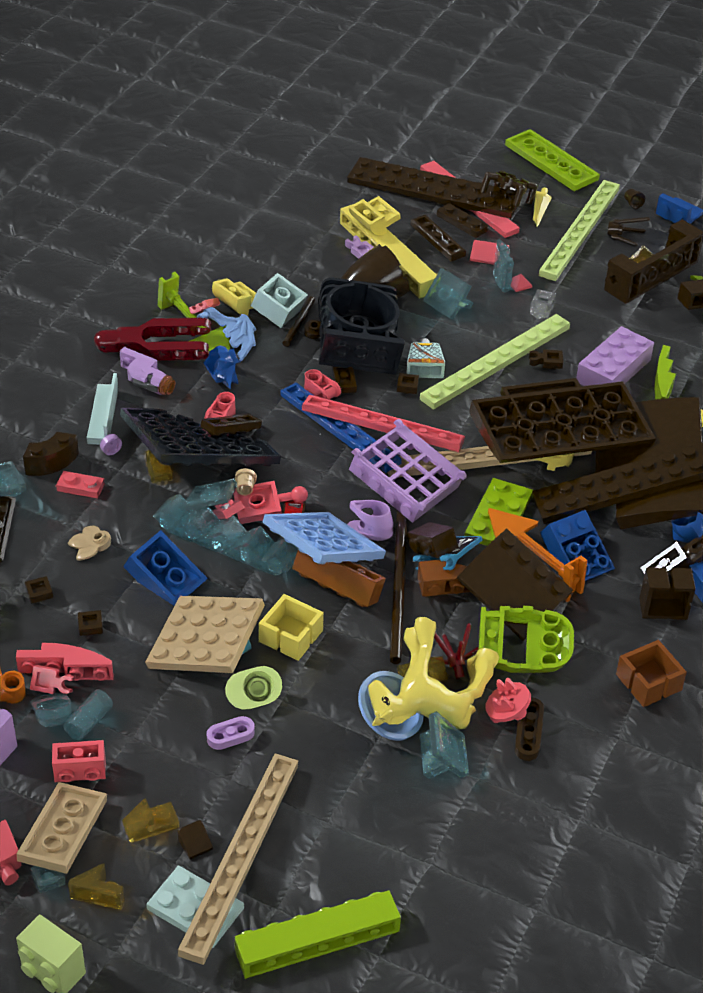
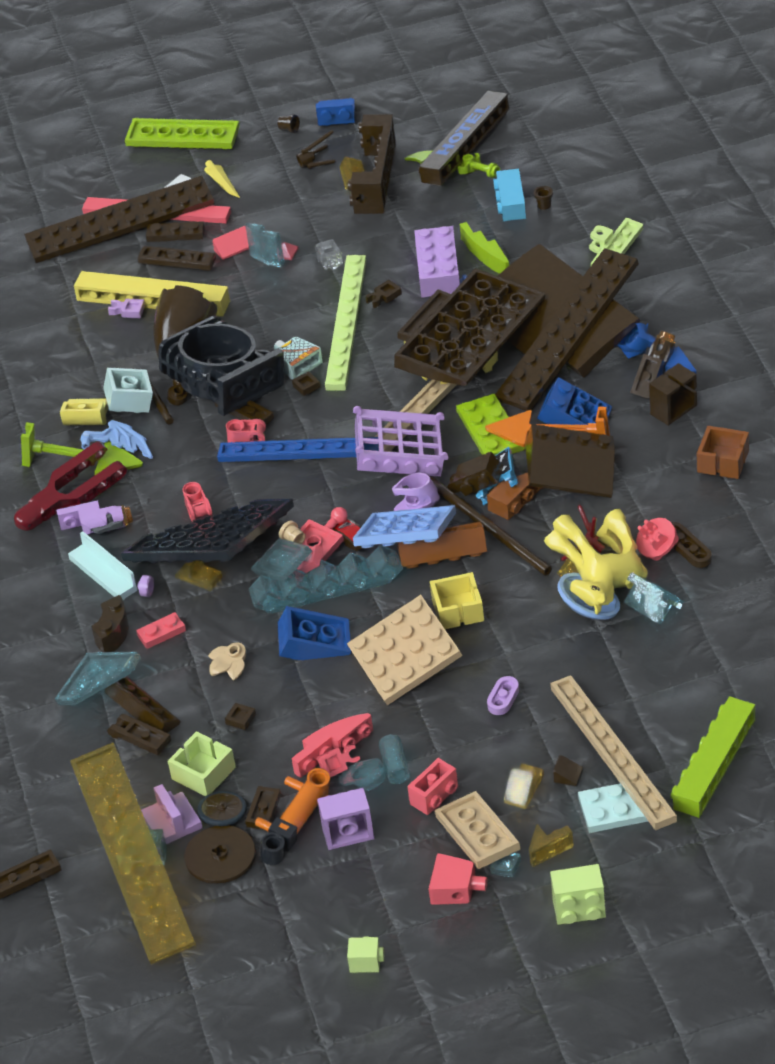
camera: 35 degrees left, 0 degrees up
(90, 623) = (309, 707): dark brown plate -> none
(200, 307) = (71, 434): coral tile -> none
(222, 364) = (151, 470): blue hair -> none
(231, 424) = (220, 504): dark brown plate -> none
(253, 687) = (486, 654): yellowish green piece -> none
(375, 214) = (118, 270): light yellow brick -> none
(381, 422) = (326, 424): coral tile -> none
(448, 294) = (250, 295): clear light blue bracket -> none
(507, 181) = (187, 173): dark brown plate -> none
(548, 638) = (630, 478): lime slope -> none
(579, 230) = (279, 177): yellowish green plate -> none

